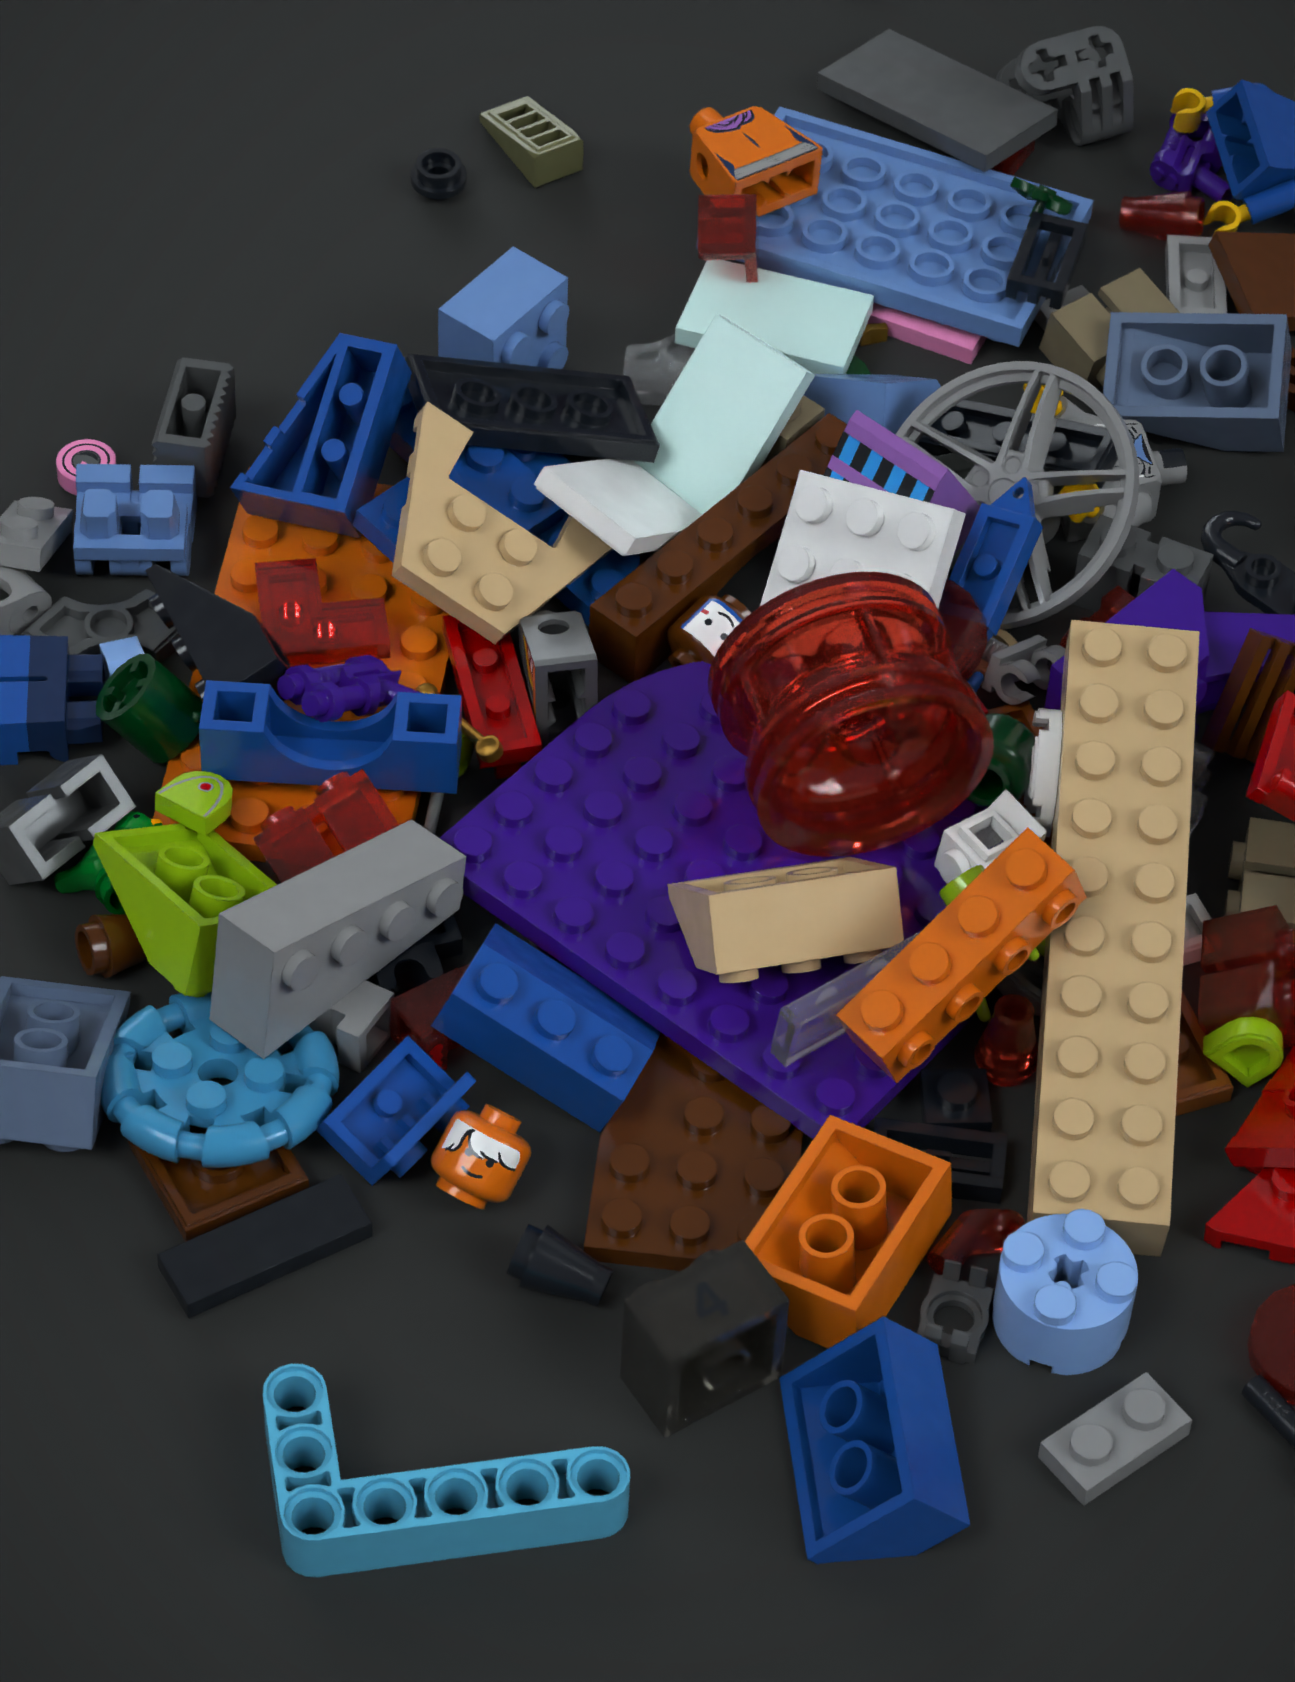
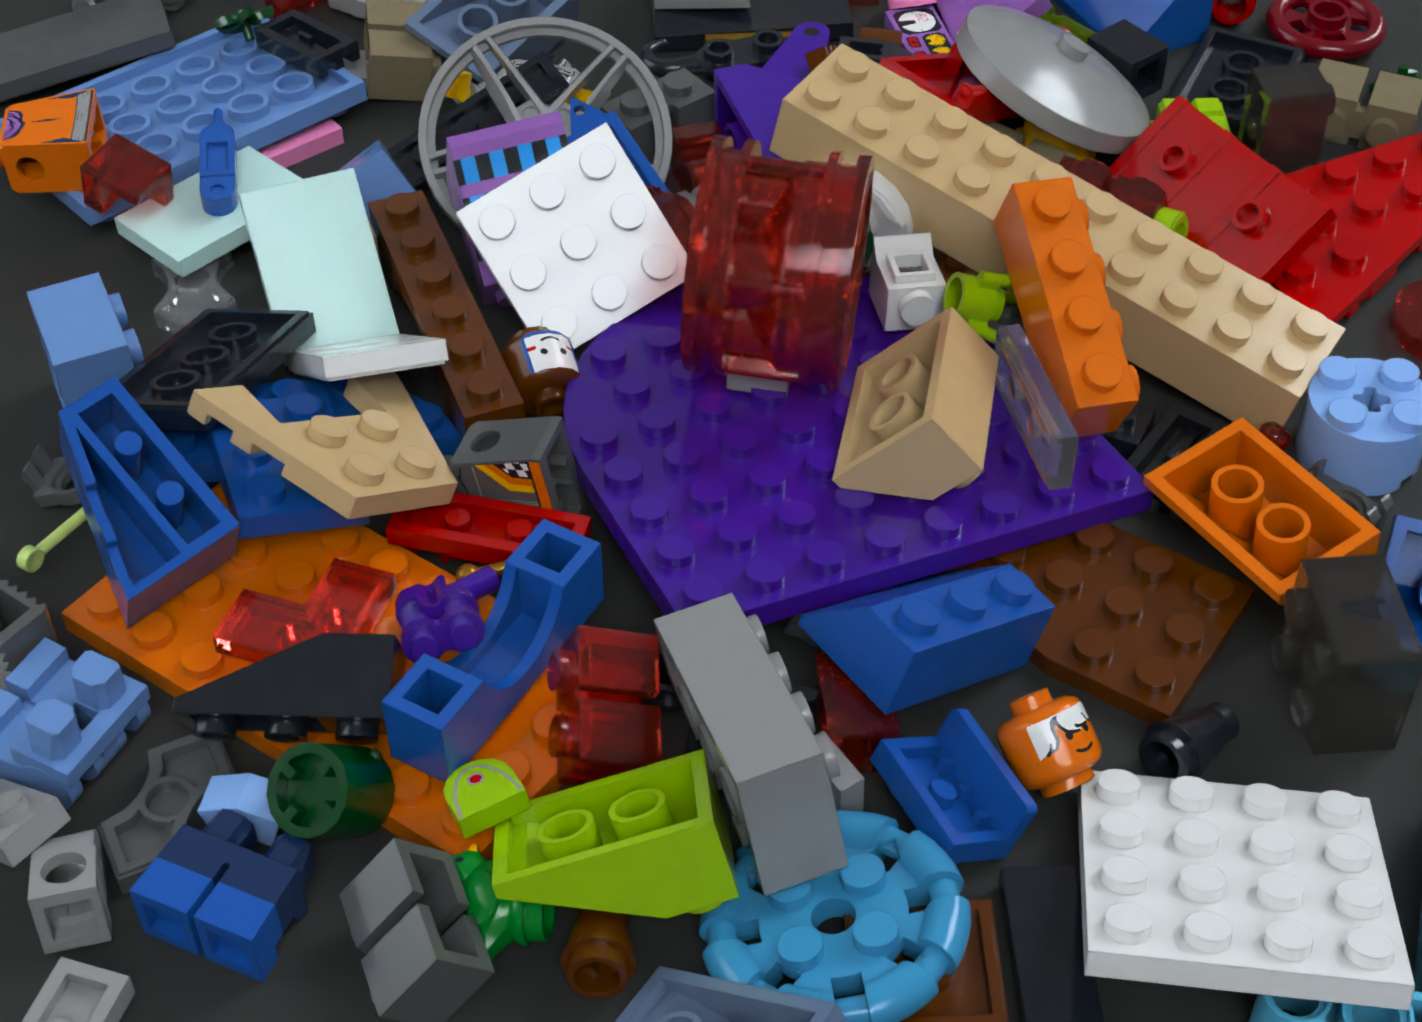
camera: 60 degrees left, 5 degrees down
(394, 1329) = (1238, 890): none -> white plate
(812, 287) = (218, 167): none -> blue piece

